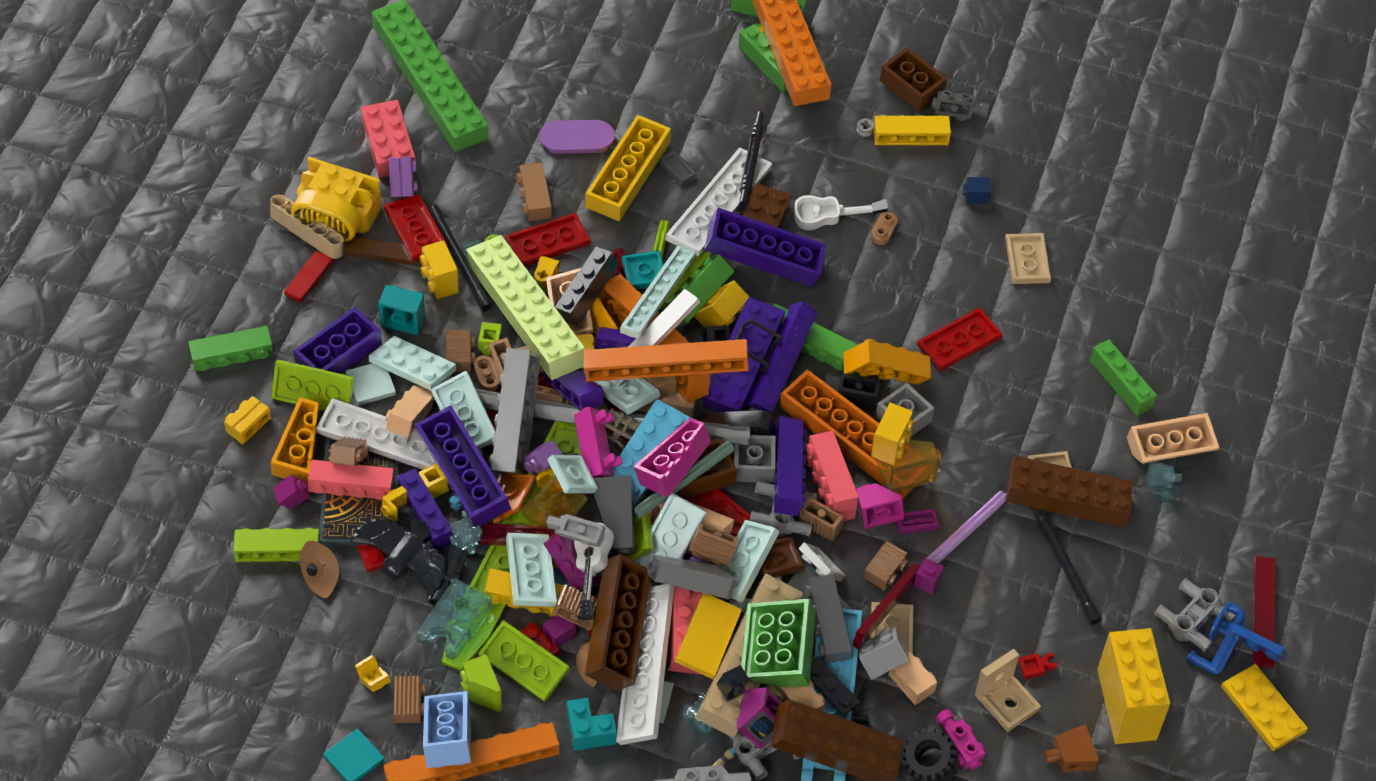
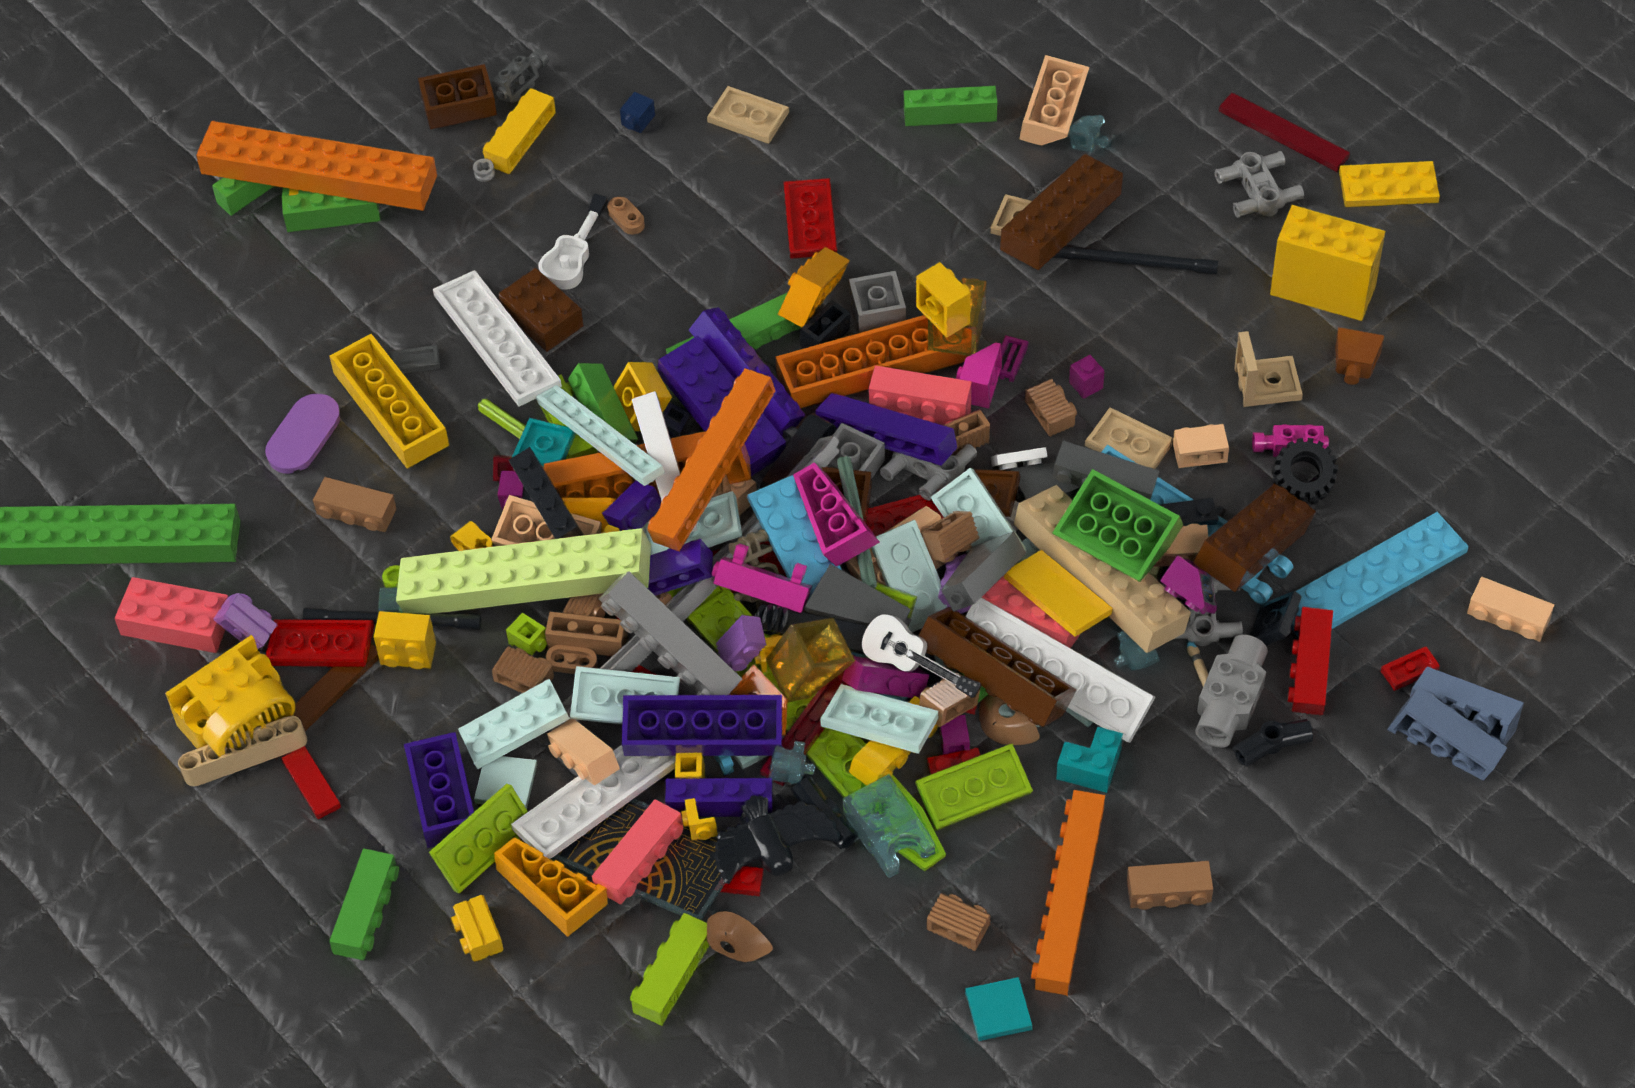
camera: 55 degrees left, 0 degrees up
(291, 492) = (612, 920): magenta brick -> none
(349, 451) = (604, 833): medium nougat brick -> none
(371, 674) = (906, 943): yellow bracket -> none
(401, 309) = (435, 701): teal brick -> none
(447, 729) = (1033, 890): light blue brick -> none
(481, 683) = (988, 835): lime slope -> none
(548, 239) = (426, 519): red tile -> none
(572, 474) = (799, 613): light aqua tile -> none
(577, 529) = (872, 641): light grey hinge -> none
(733, 683) = (1147, 586): black brick -> none
(751, 159) = (460, 283): black axle -> none
(765, 247) = (593, 320): dark purple brick -> none
(765, 365) = (732, 354): black piece -> none
(883, 652) = (1167, 449): light grey brick -> none
(885, 606) = (1109, 422): dark red tile -> none
(967, 528) = (1046, 321): lavender axle -> none
(1034, 666) = (1233, 335): red plate -> none
(1232, 633) = (1305, 157): blue plate -> none

